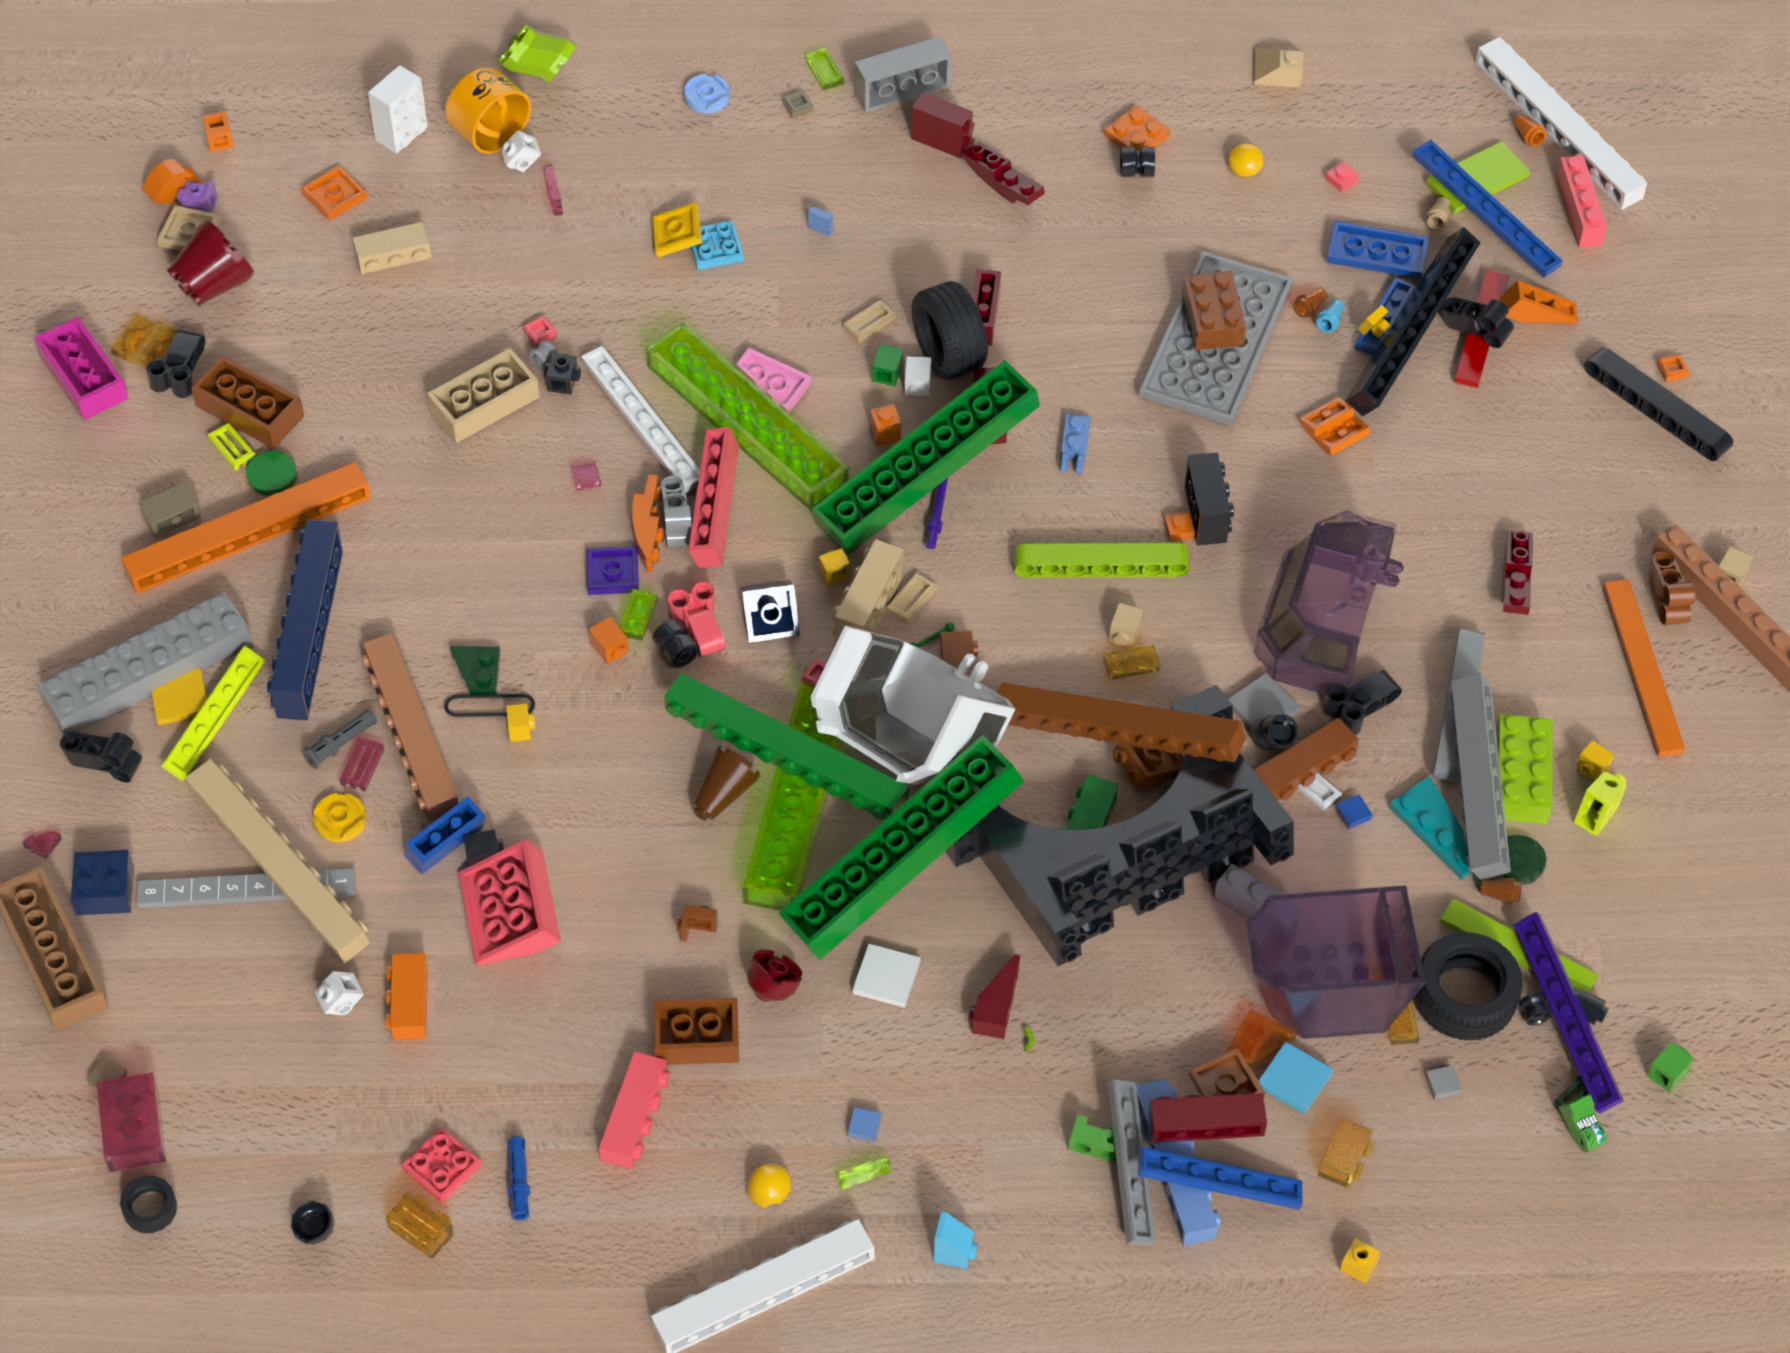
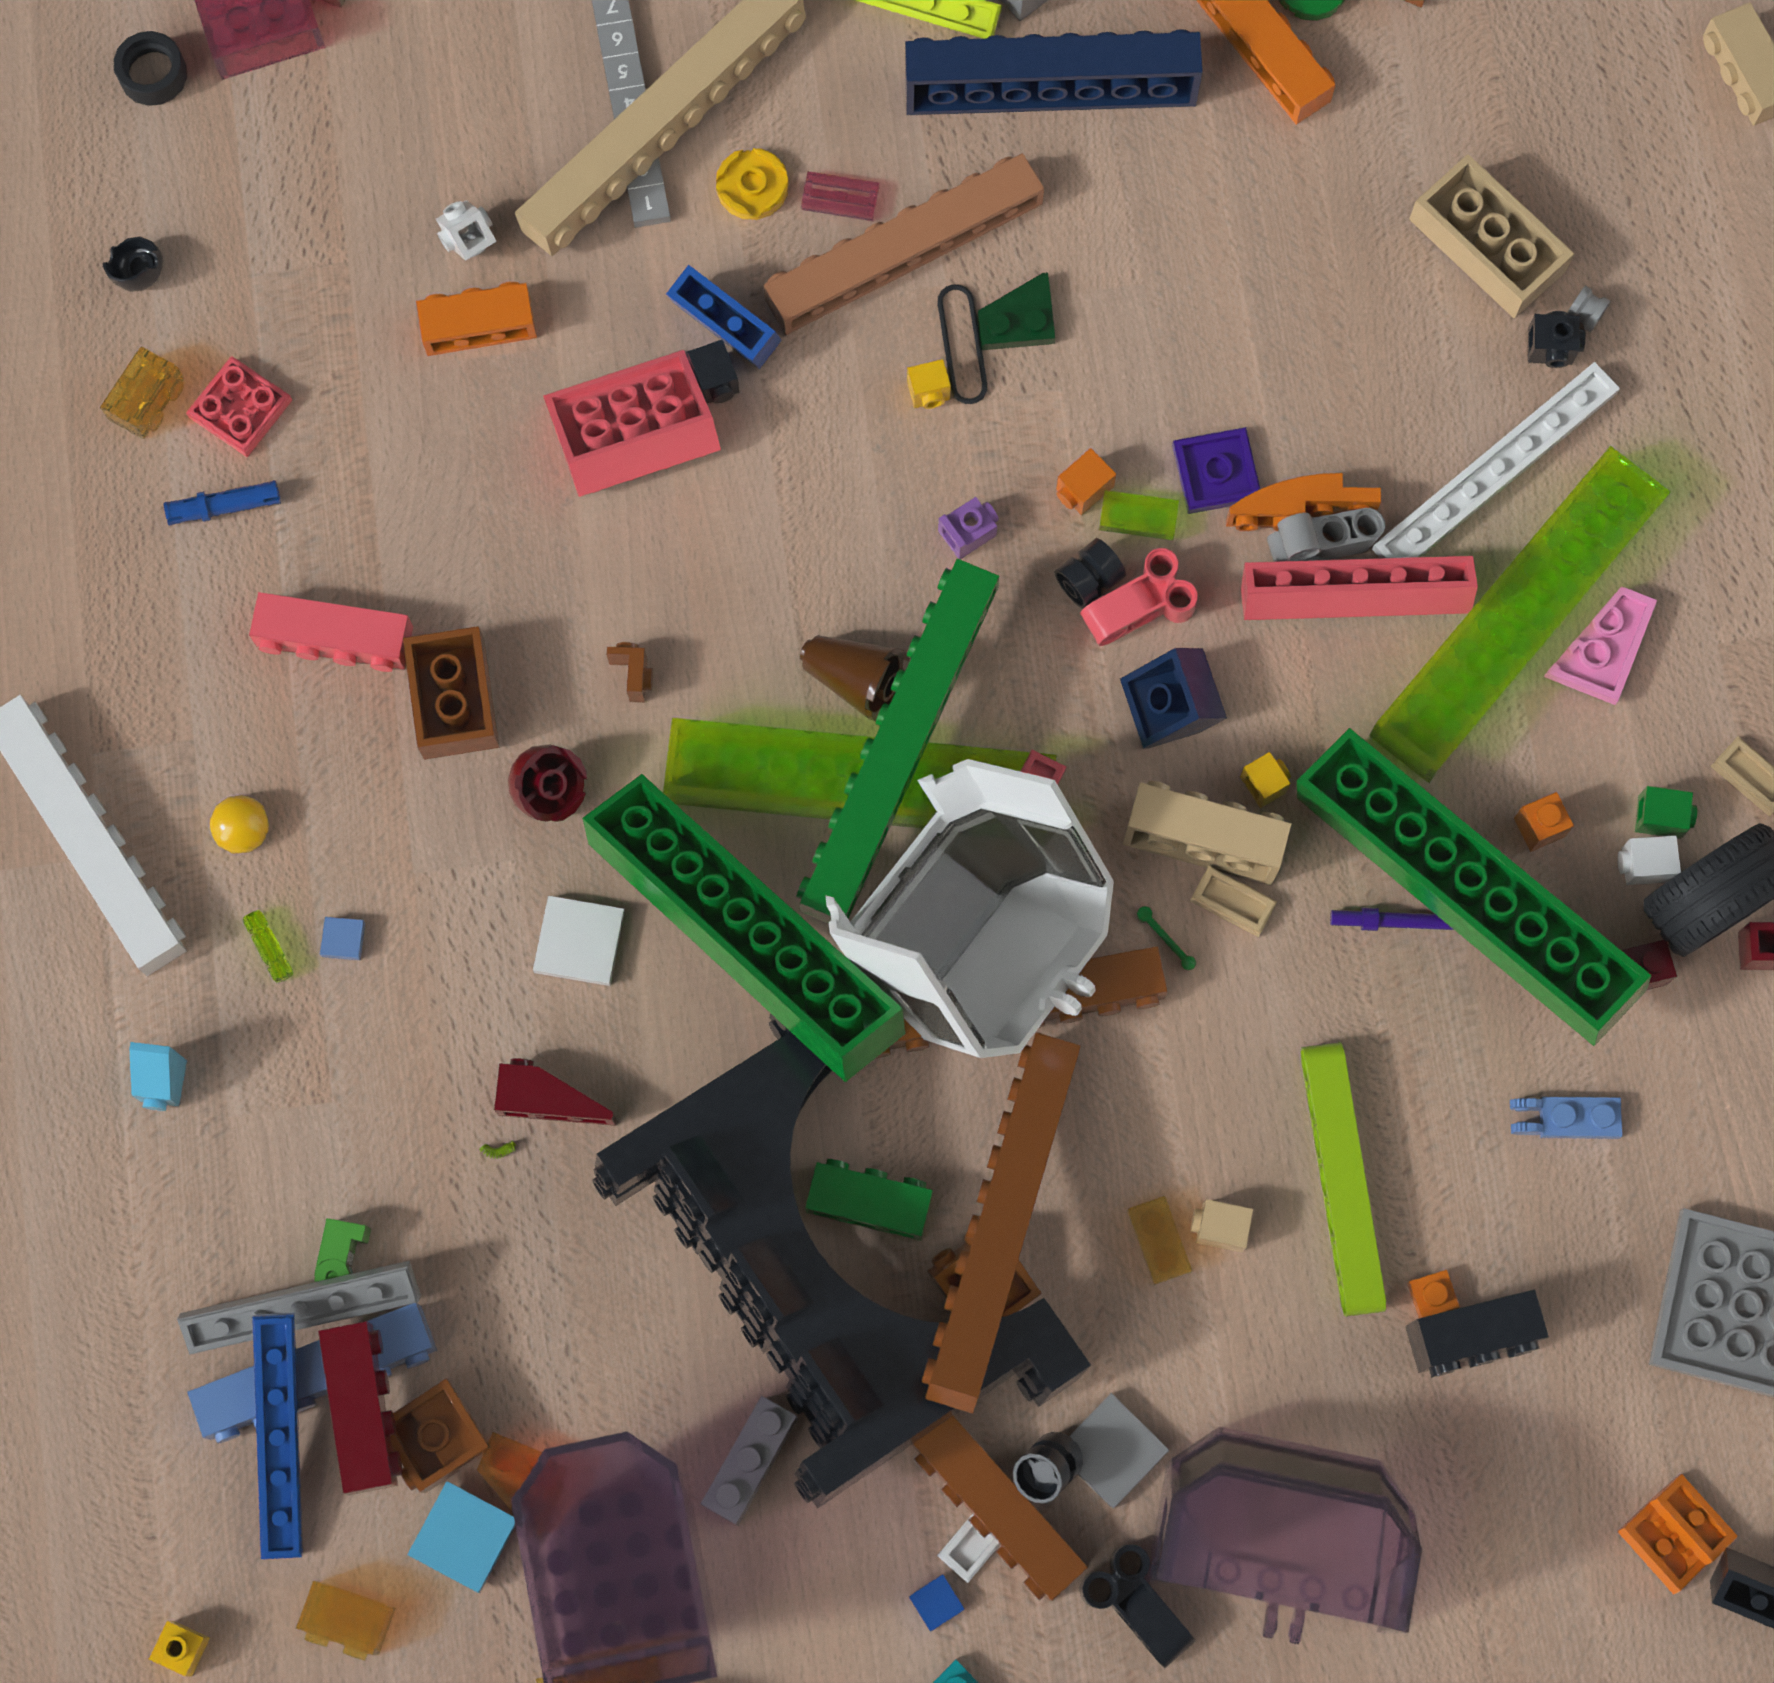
camera: 85 degrees right, 20 degrees up
(330, 744) = (861, 145): dark grey pin -> none
(539, 330) = (1639, 299): coral tile -> none
(586, 476) = (1380, 407): clear pink tile -> none
(628, 712) = (965, 538): none -> medium lavender brick

